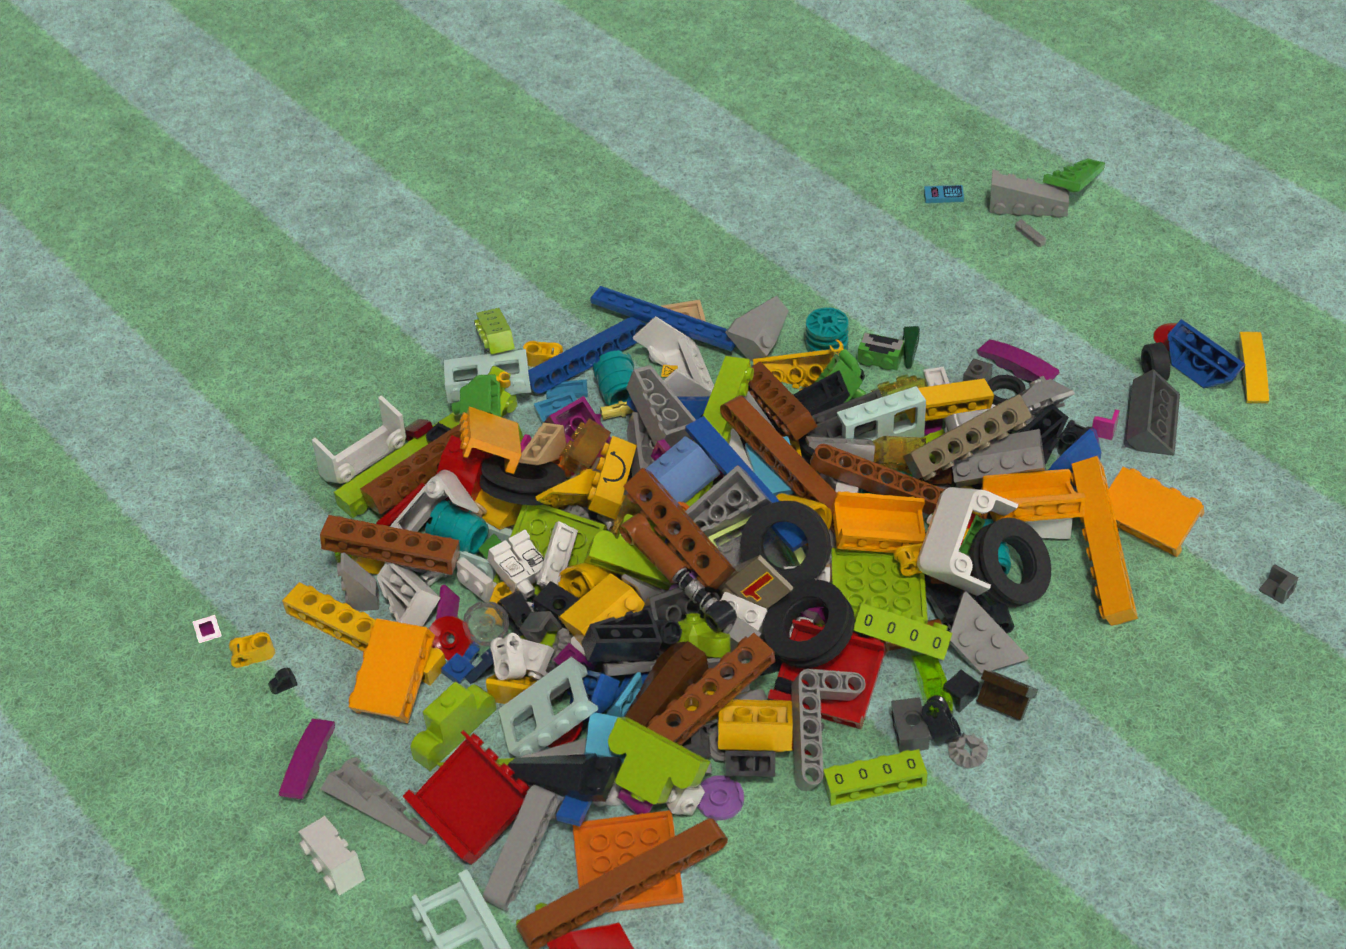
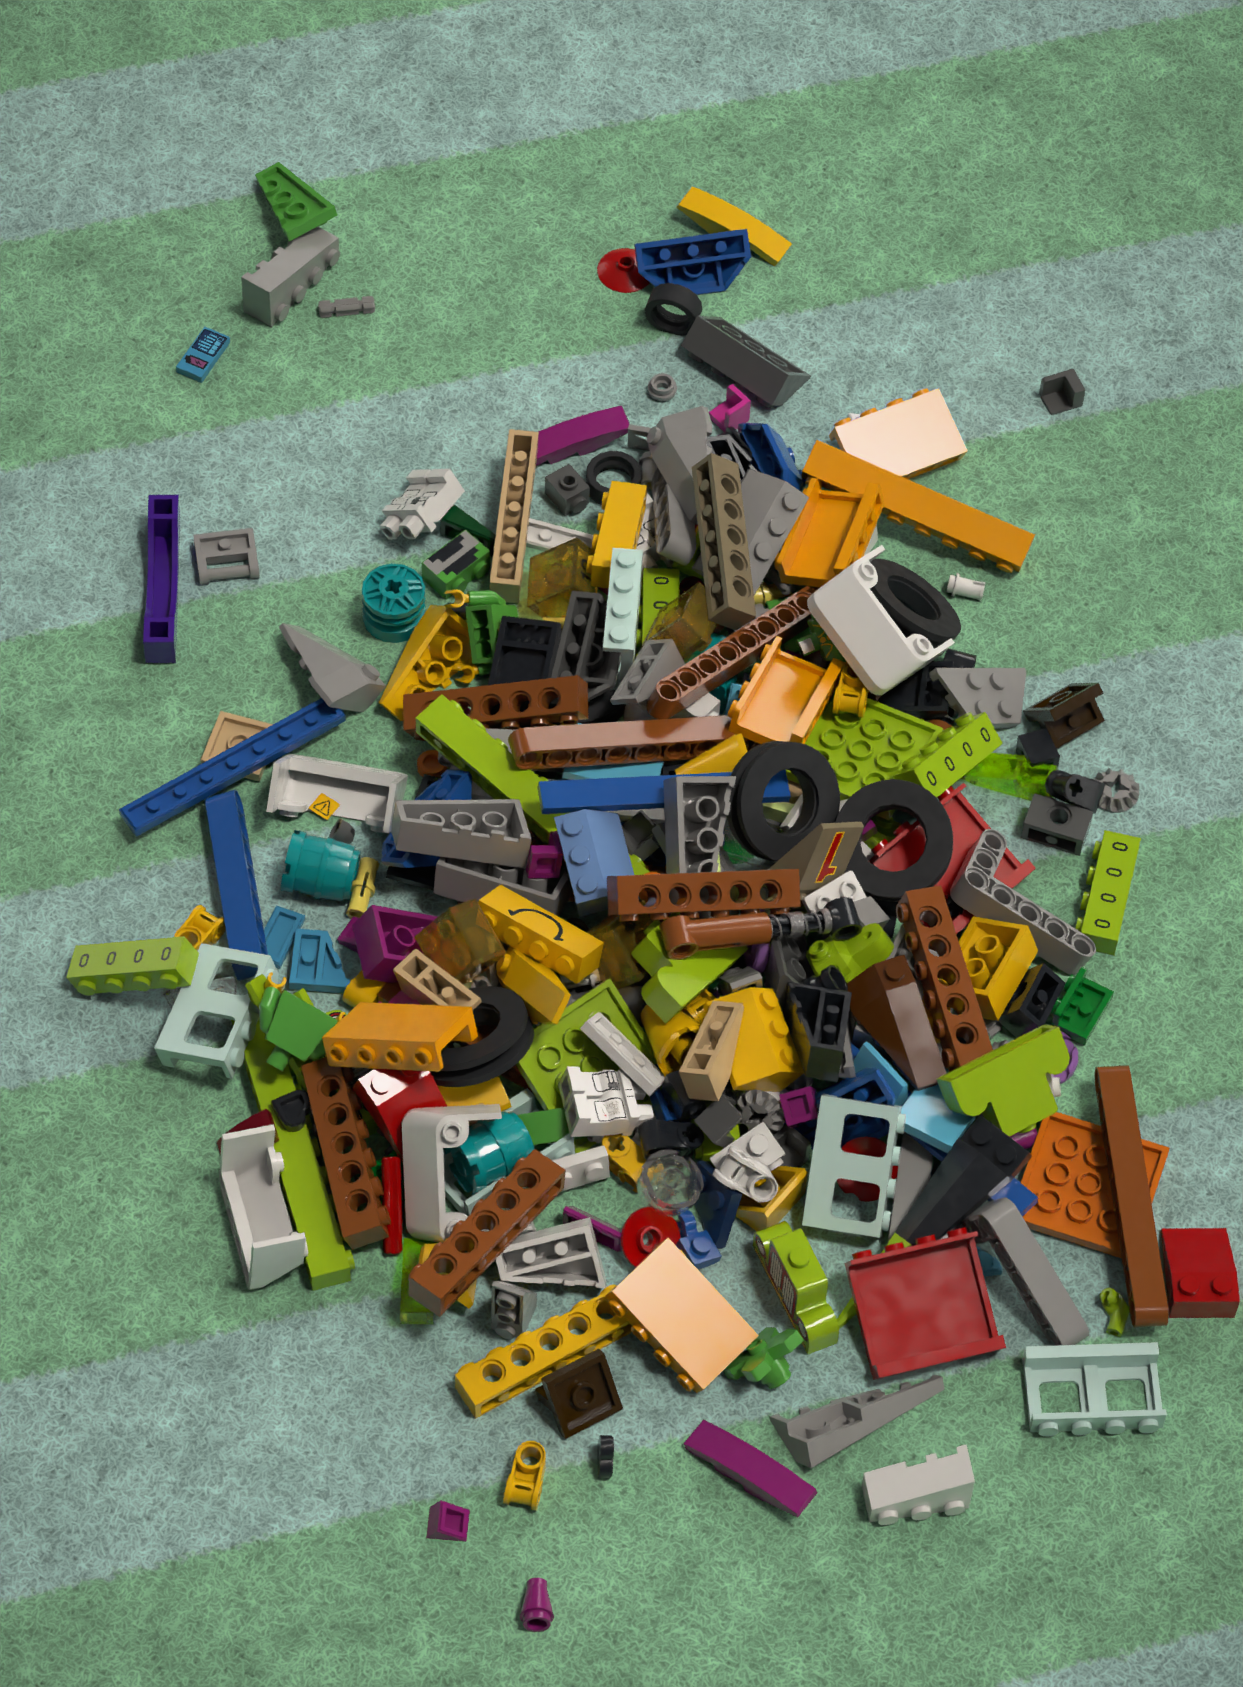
camera: 70 degrees left, 10 degrees up
(163, 692) = (536, 1607): none -> magenta cone
(318, 648) = (580, 1393): none -> dark brown bracket
(387, 731) = (765, 1358): none -> bright green plant
(567, 589) = (712, 1052): none -> tan slope
(738, 252) = (162, 579): none -> dark purple arch
(768, 797) = (1080, 1007): none -> green bracket
(814, 255) = (226, 547): none -> light grey plate
(905, 316) = (422, 503): none -> white hips
(934, 353) = (514, 514): none -> tan brick
(1067, 594) = (965, 587): none -> white pin
(1097, 387) = (662, 380): none -> light grey plate

